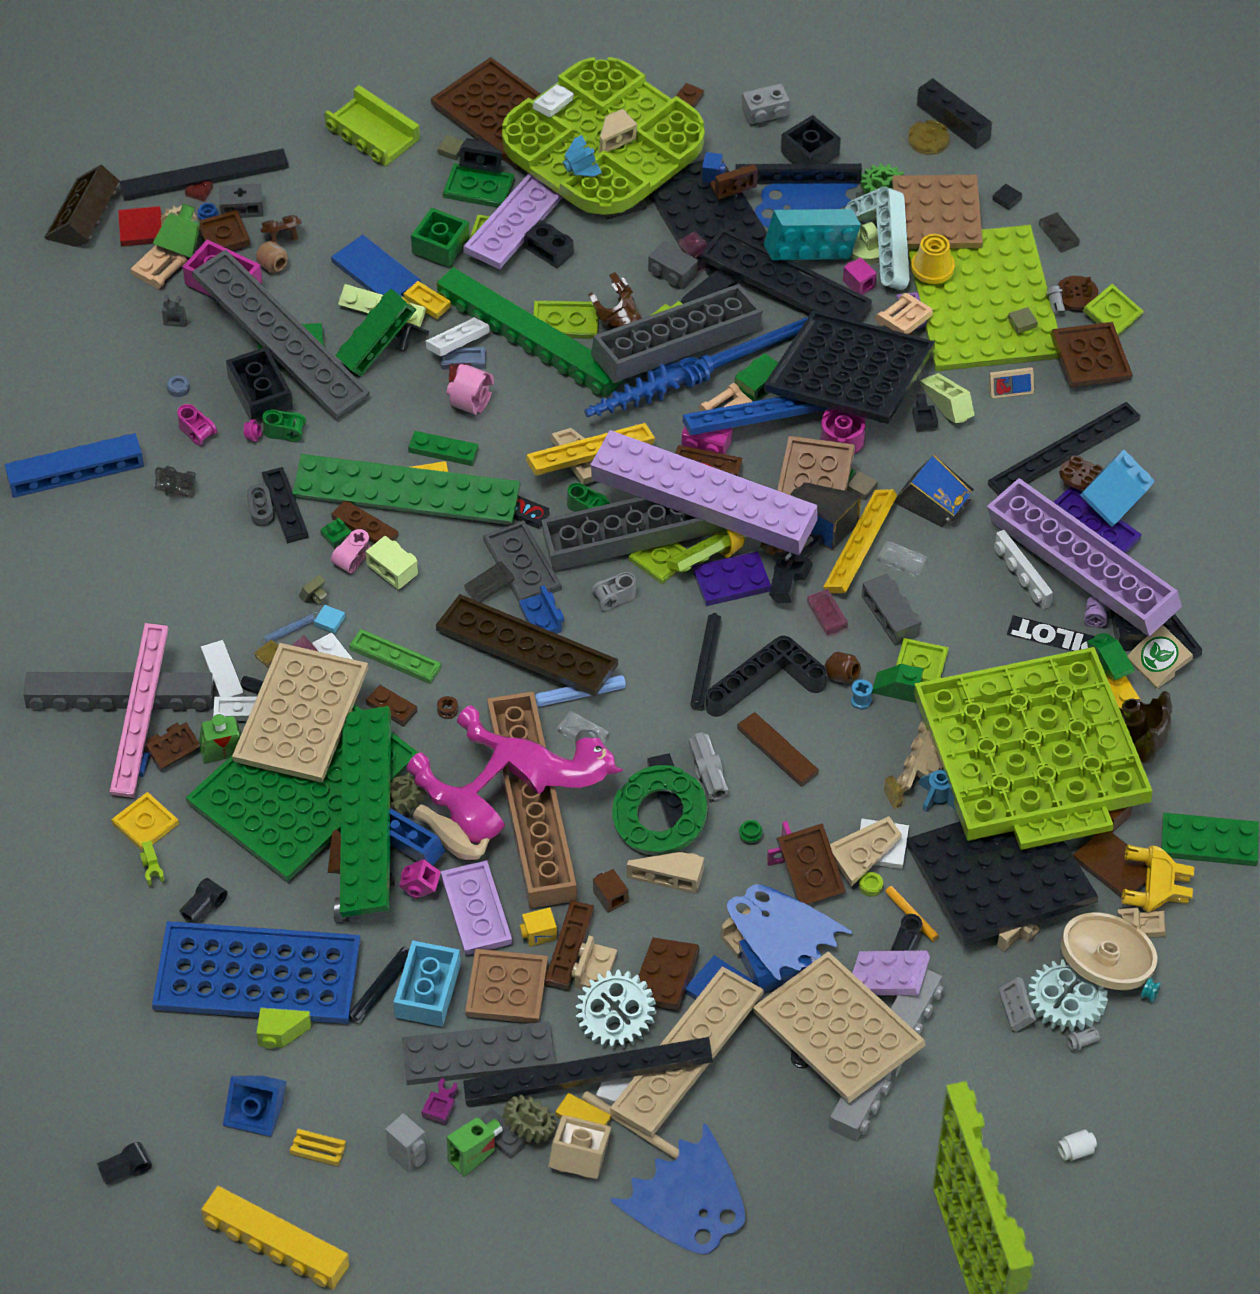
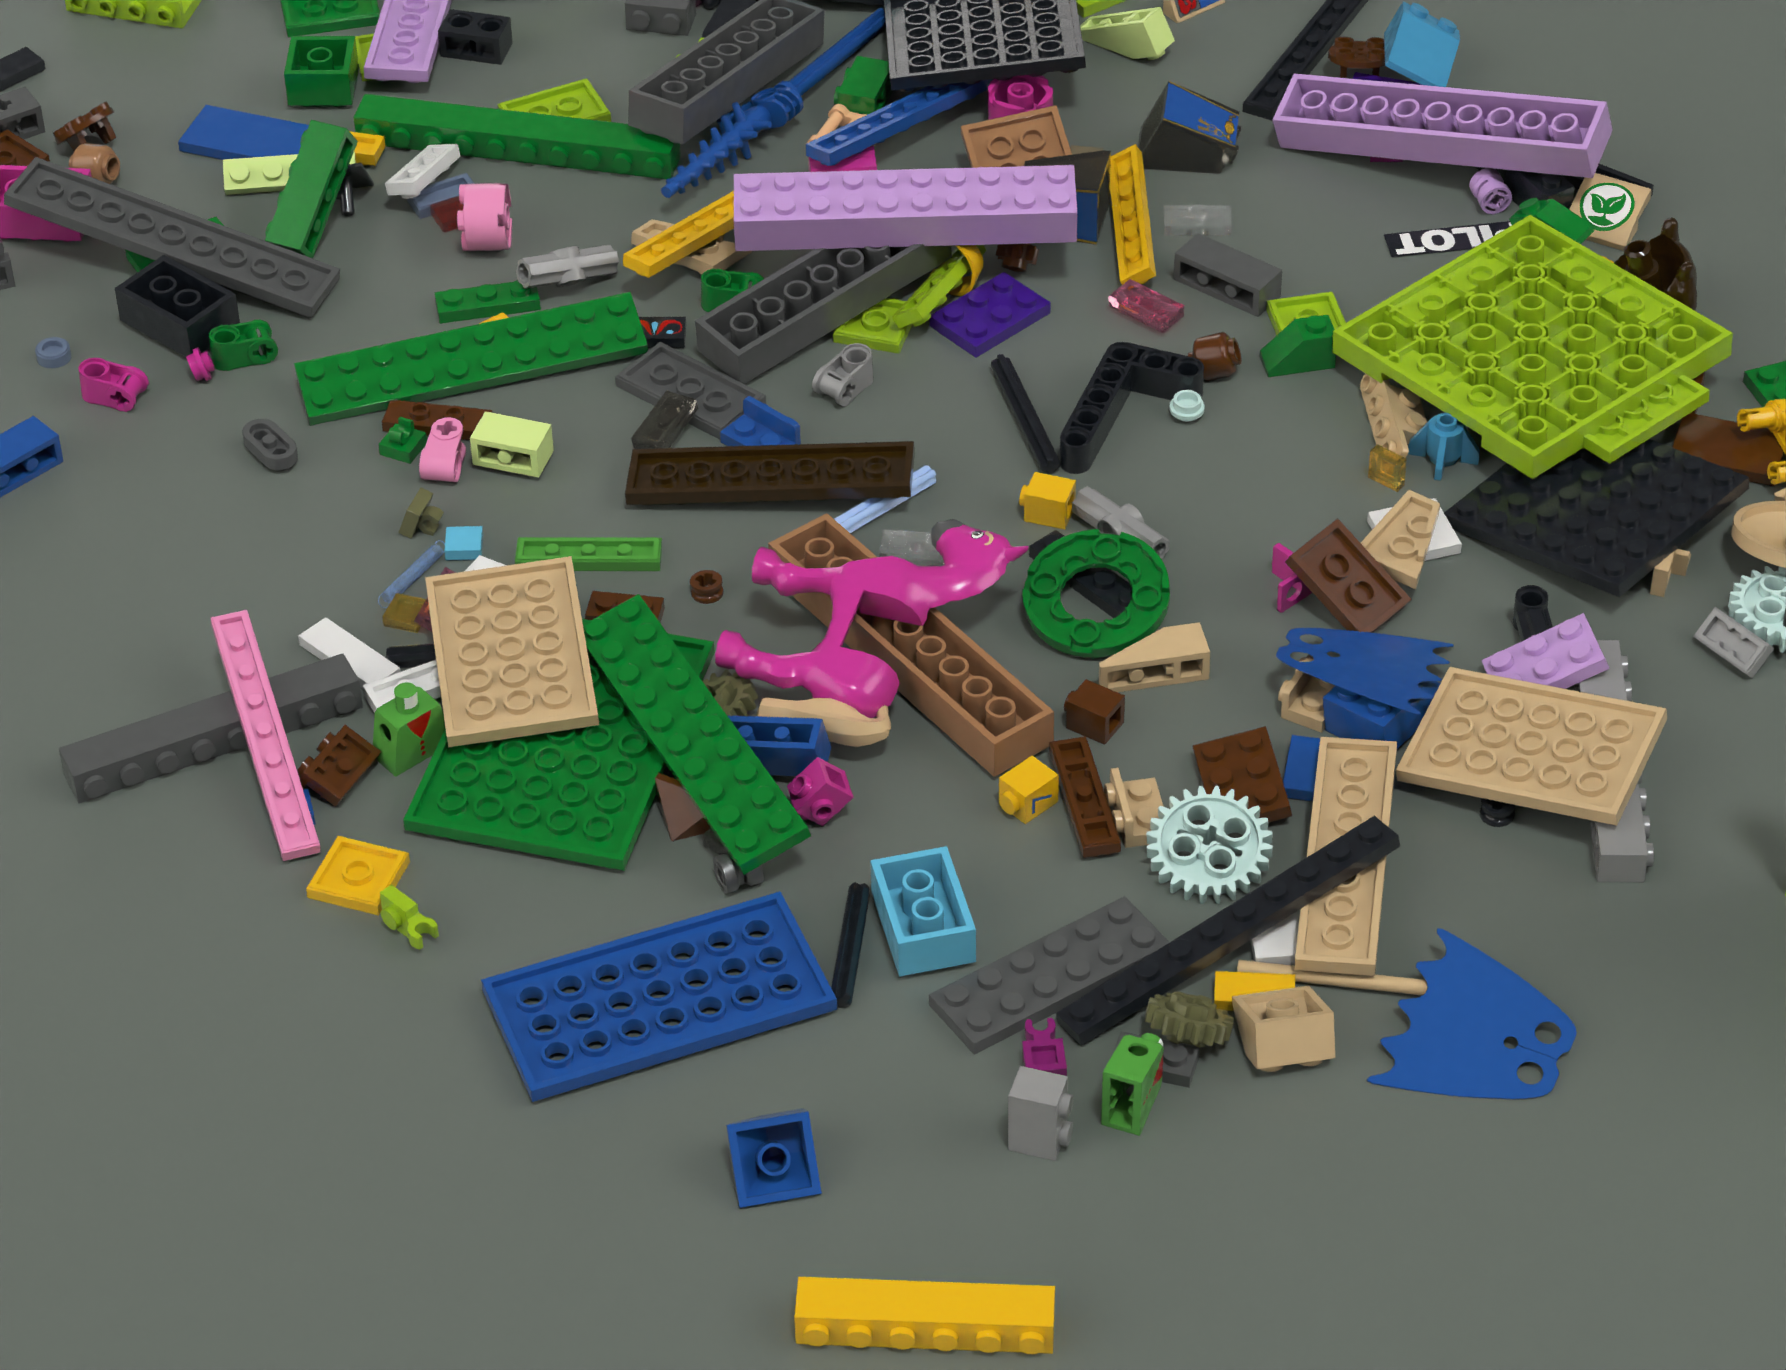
camera: 25 degrees left, 10 degrees down
(132, 1161) = (635, 1304): black piece -> none
(175, 482) = (127, 458): clear smoke hips -> none
(207, 896) = (518, 931): black piece -> none
(281, 1026) = (743, 1046): lime slope -> none
(285, 505) = (311, 438): black tile -> none
(318, 1143) = (902, 1174): yellow tile -> none
(476, 907) = (921, 799): lavender plate -> none
(498, 444) = (567, 266): none -> light grey piece
(506, 986) = (1033, 877): medium nougat plate -> none
(624, 312) = (631, 64): reddish brown helmet -> none
(677, 730) = (1048, 500): none -> yellow brick
(750, 831) = (1231, 578): green plate -> none
(777, 749) = (1195, 477): reddish brown tile -> none
(792, 568) = (1063, 276): black plate -> none
(804, 696) = (1187, 405): none -> light aqua plate
(861, 694) = (1262, 372): dark azure bush -> none
(871, 884) = (1435, 583): lime tile -> none
(908, 909) = (1506, 593): light orange bar -> none
(924, 415) = (1108, 62): black plate -> none
(1023, 569) = (1364, 177): white plate -> none

